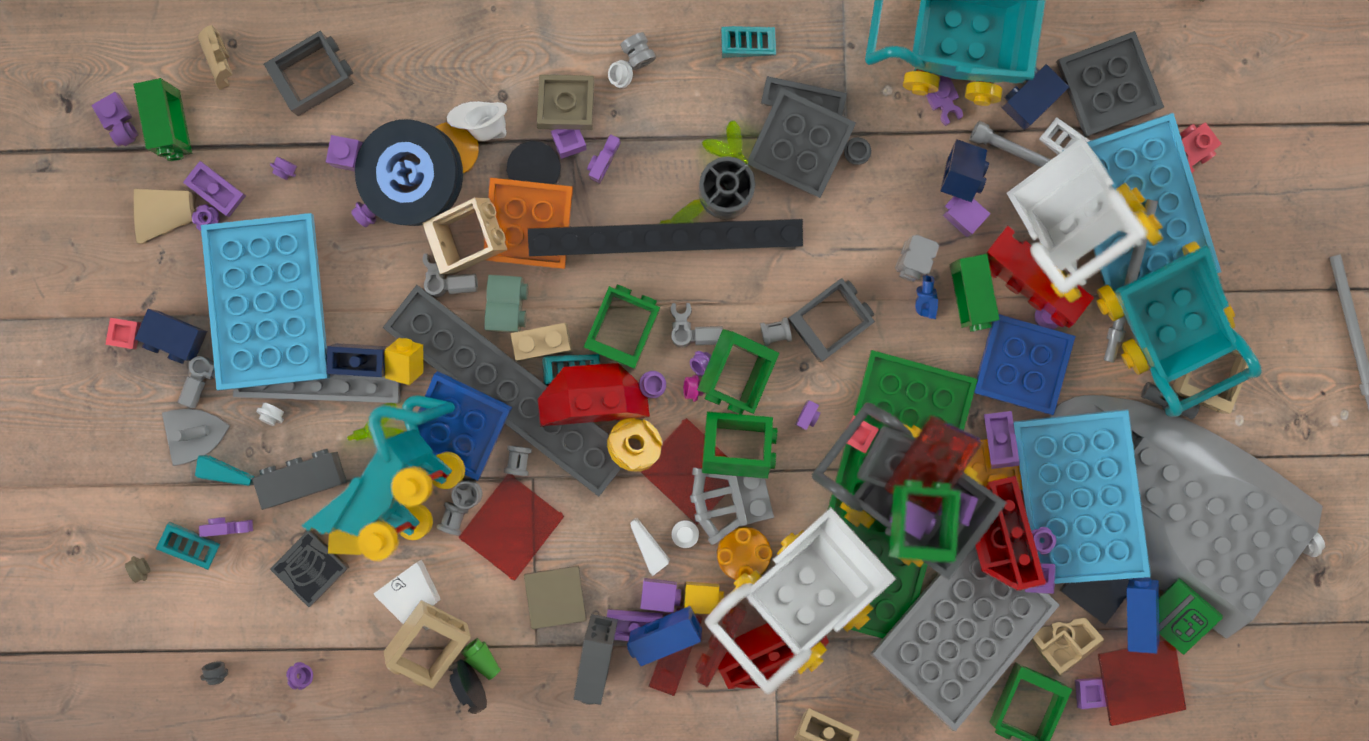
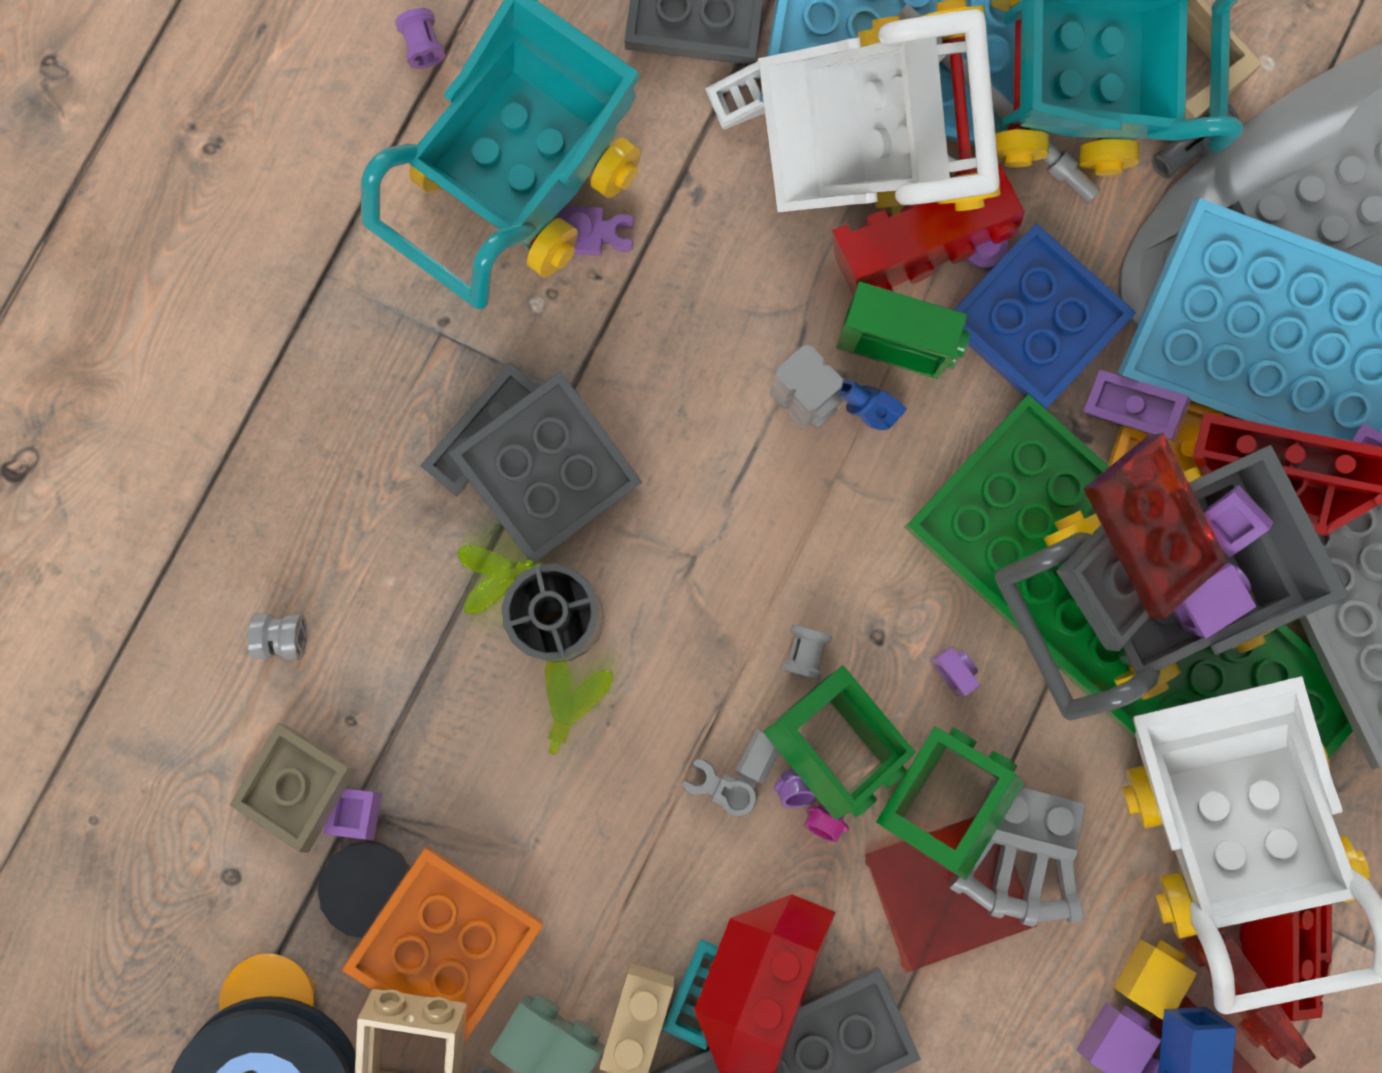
camera: 60 degrees left, 5 degrees down
(481, 119) = (246, 934): white piece -> none
(599, 164) = (415, 784): medium lavender plate -> none
(620, 73) = (297, 681): white plate -> none
(622, 293) = (707, 922): green window -> none
(627, 457) = (868, 988): yellow tile -> none
(652, 384) = (789, 881): medium lavender plate -> none
(653, 554) = (1045, 1019): white slope -> none
(665, 237) = (574, 751): black plate -> none
(685, 534) = (1042, 952): white plate -> none
(738, 31) = (332, 472): teal slope -> none
(743, 552) = (1117, 877): light orange dish -> none
(857, 151) = (602, 392): dark grey plate -> none
(862, 310) = (841, 507): dark grey window -> none
(863, 436) = (1038, 603): coral plate -> none
(948, 528) = (1307, 588): green window -> none
(965, 171) = (716, 253): dark blue brick -> none
(965, 215) = (777, 285): medium lavender brick -> none
(983, 134) = (674, 201): light grey piece -> none
(1034, 97) = (662, 103): dark blue brick -> none
(1049, 540) = (1327, 413): medium lavender plate -> none

